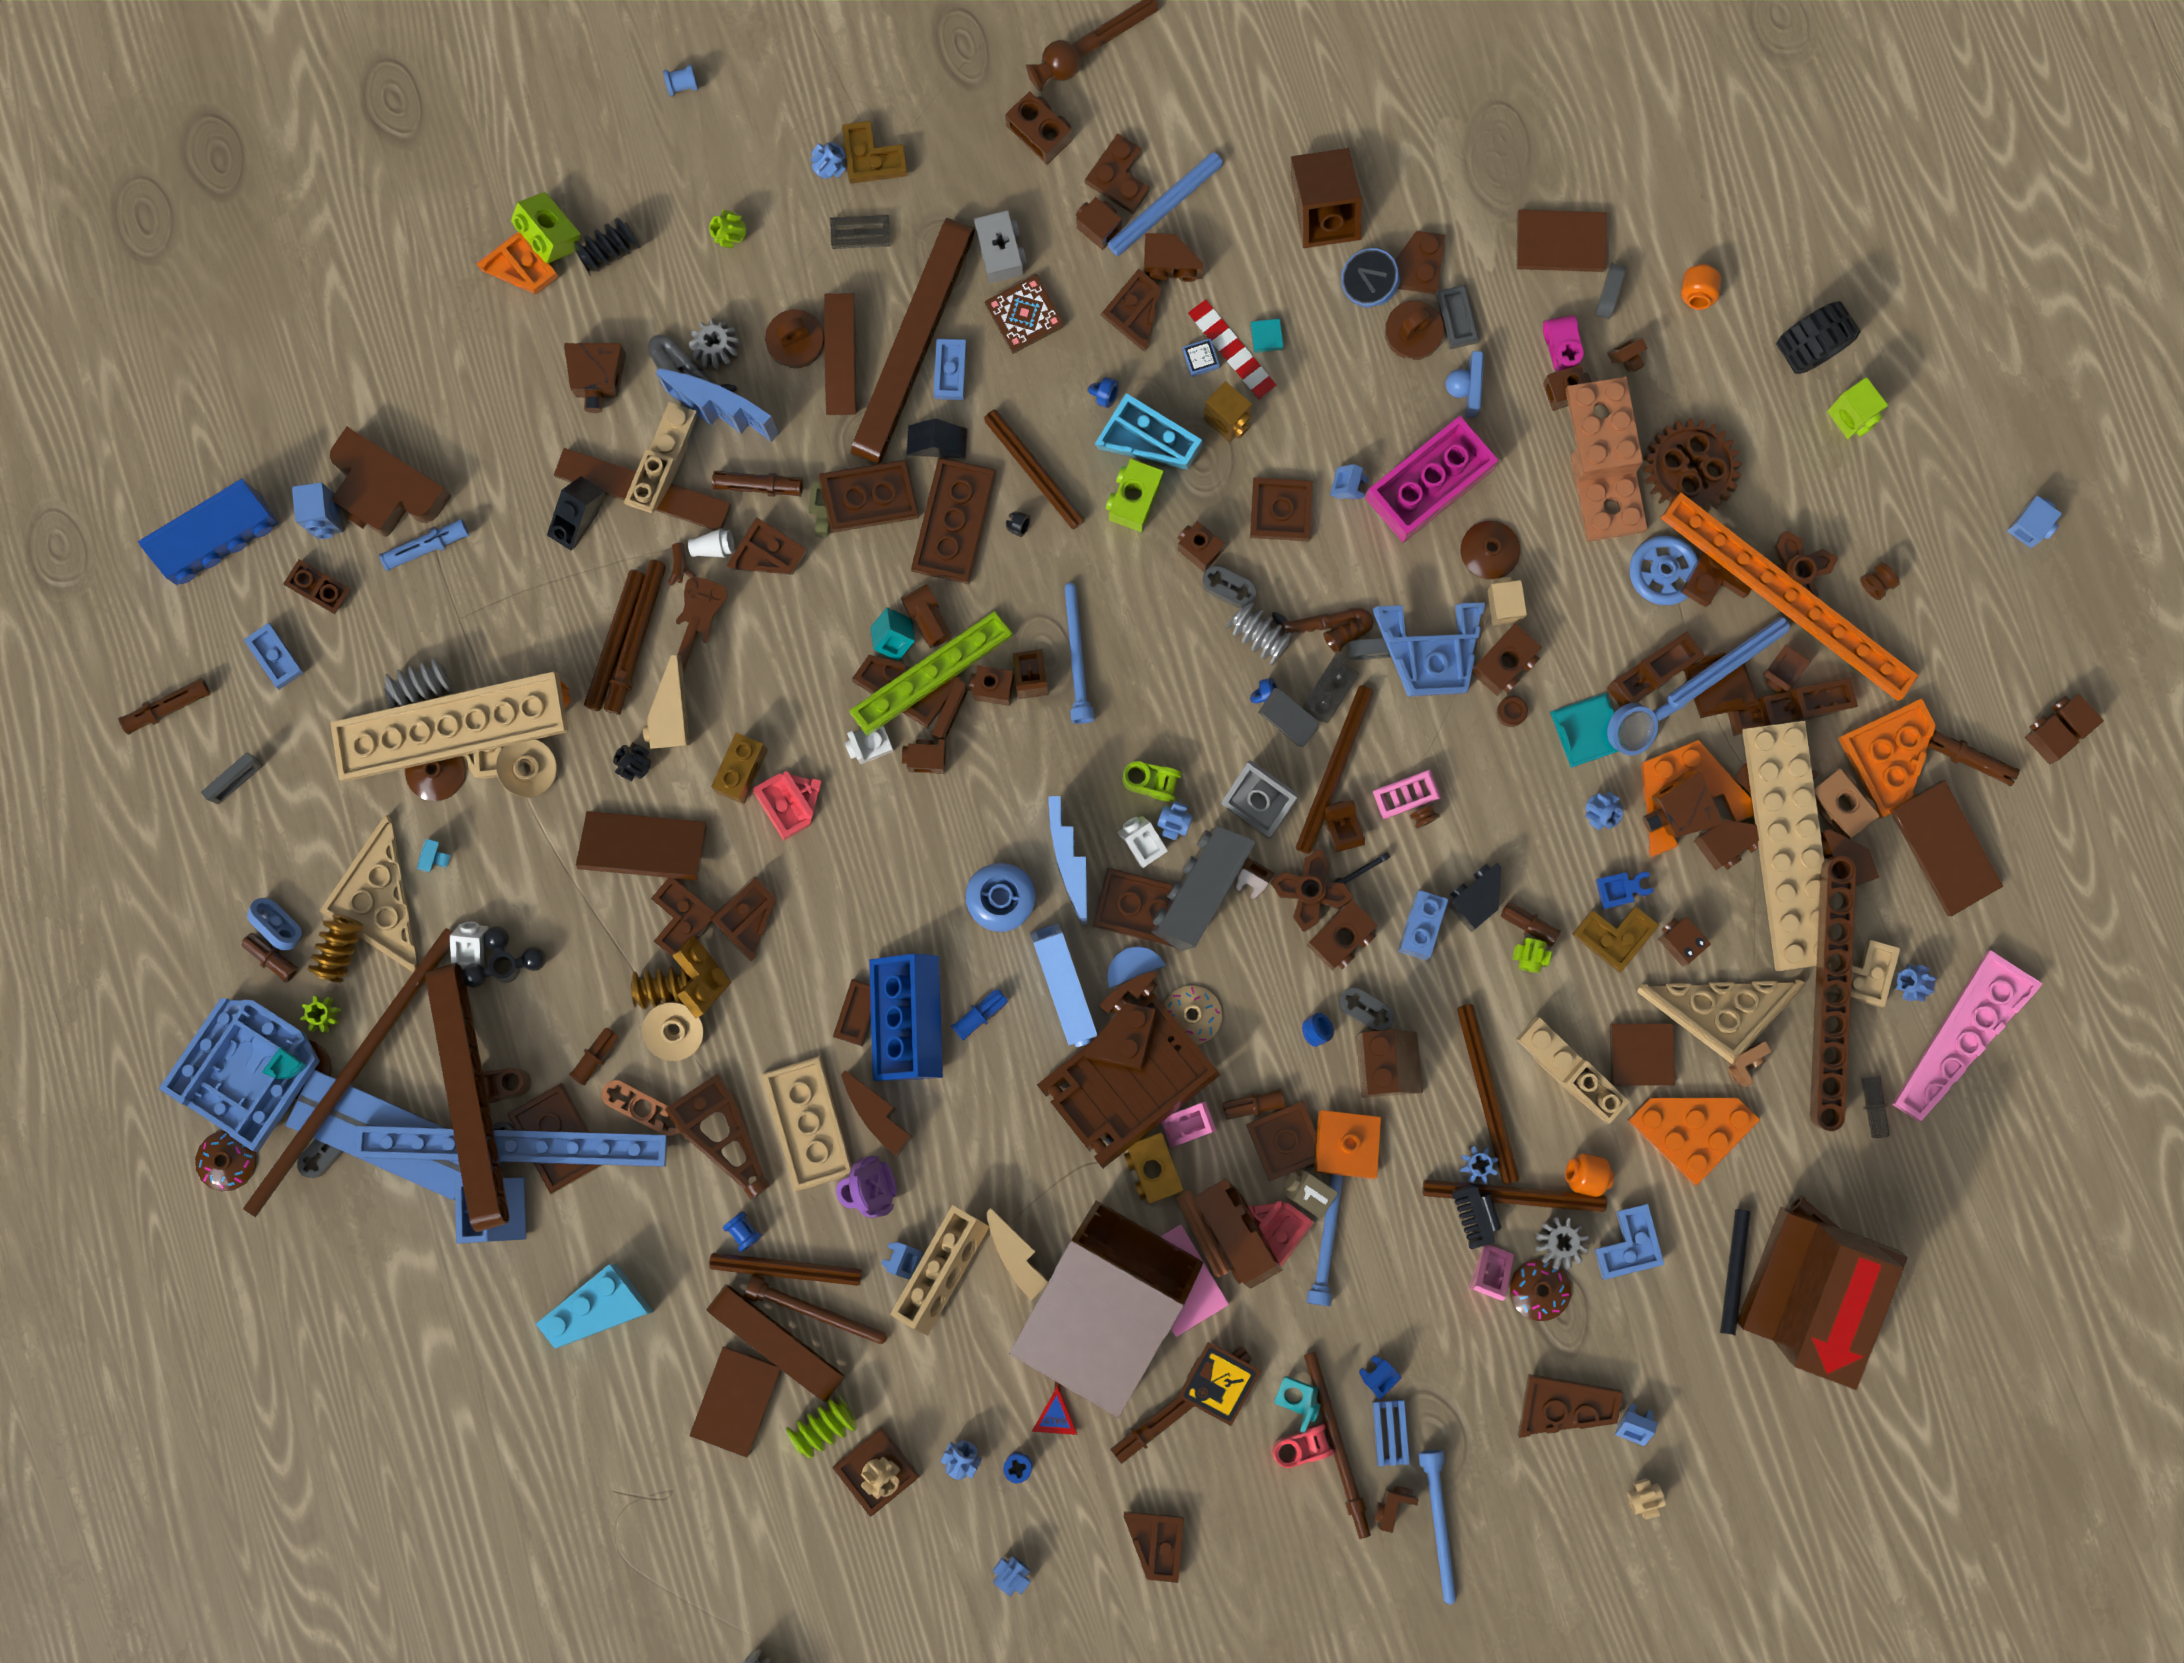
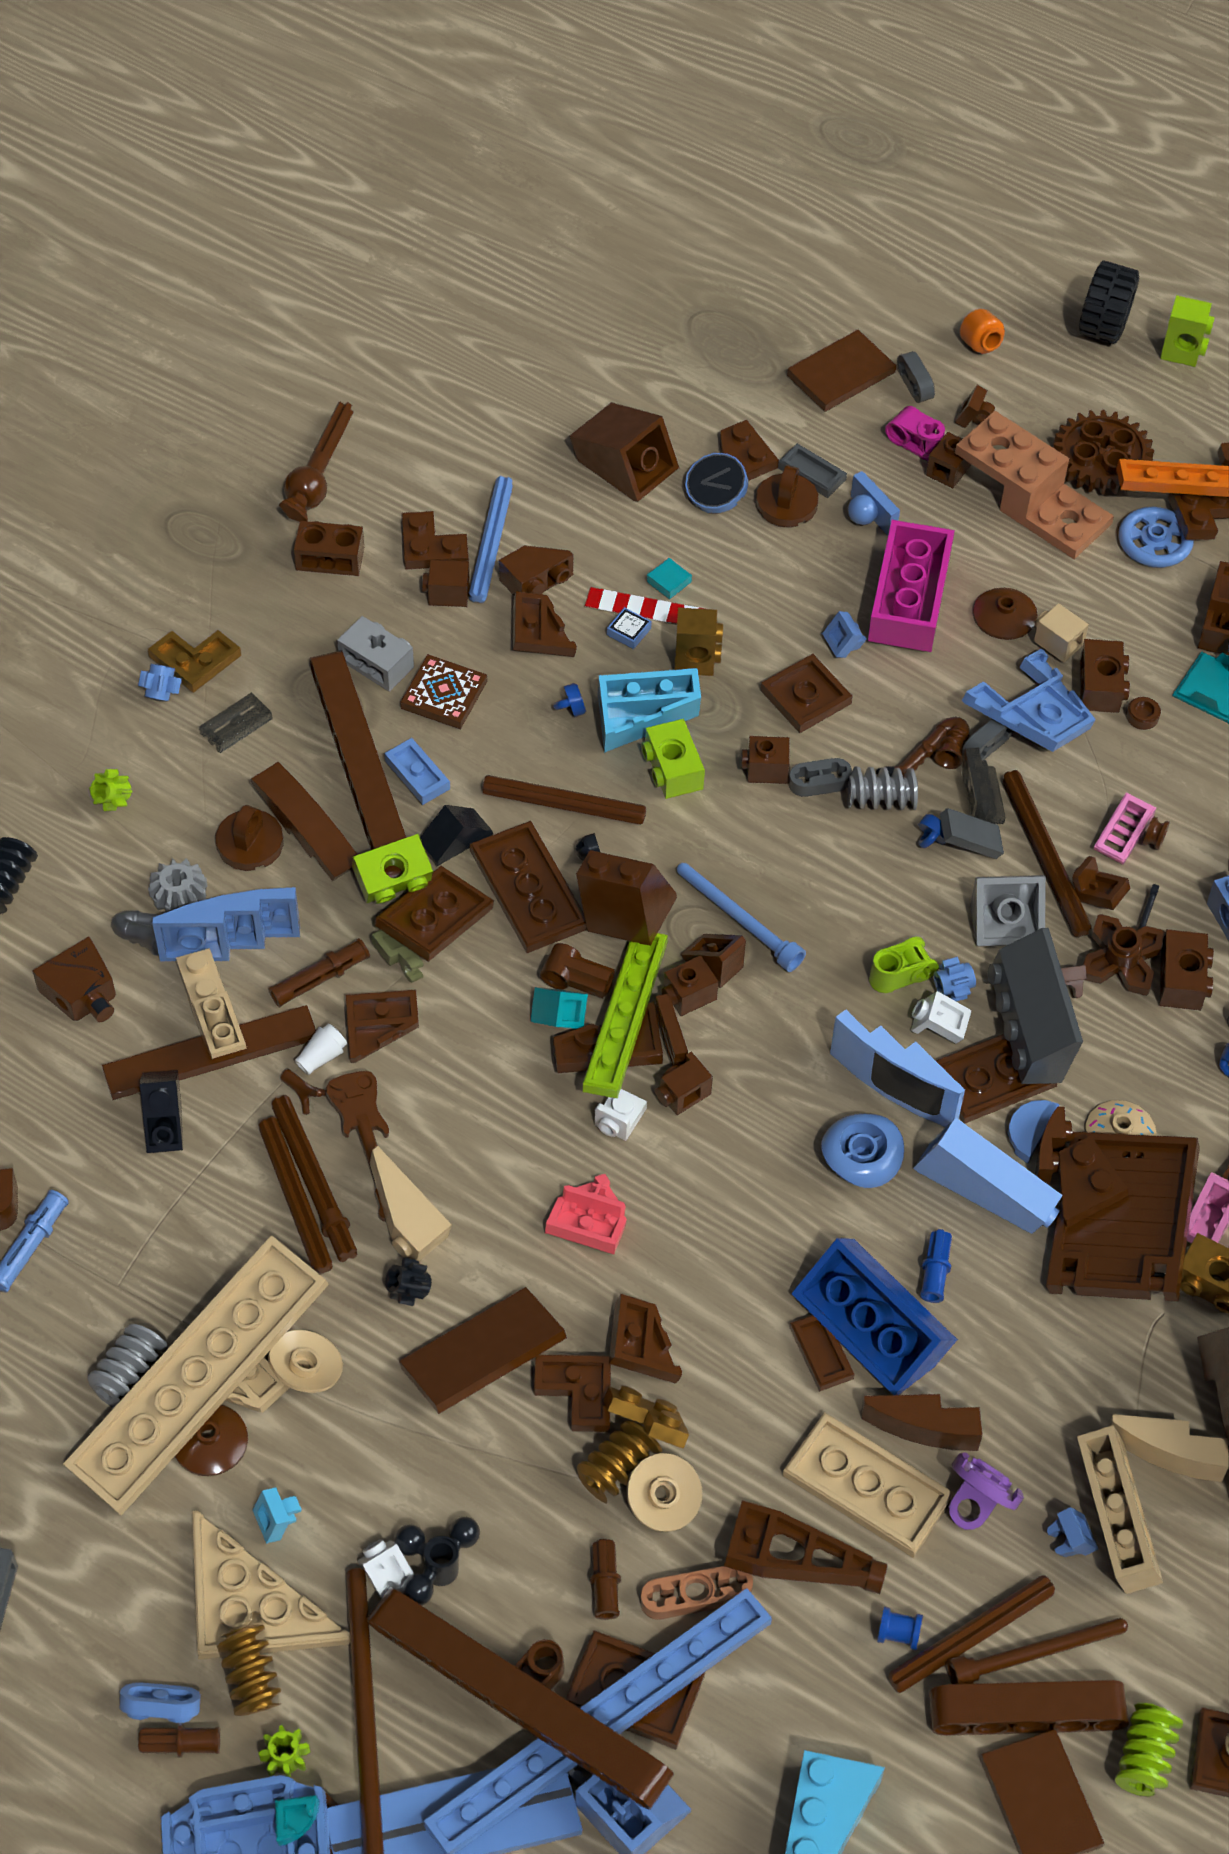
camera: 45 degrees left, 25 degrees down
(739, 768) = (518, 1214): pearl gold brick -> none
(873, 442) = (407, 855): none -> lime brick
(997, 587) = (623, 897): none -> reddish brown slope

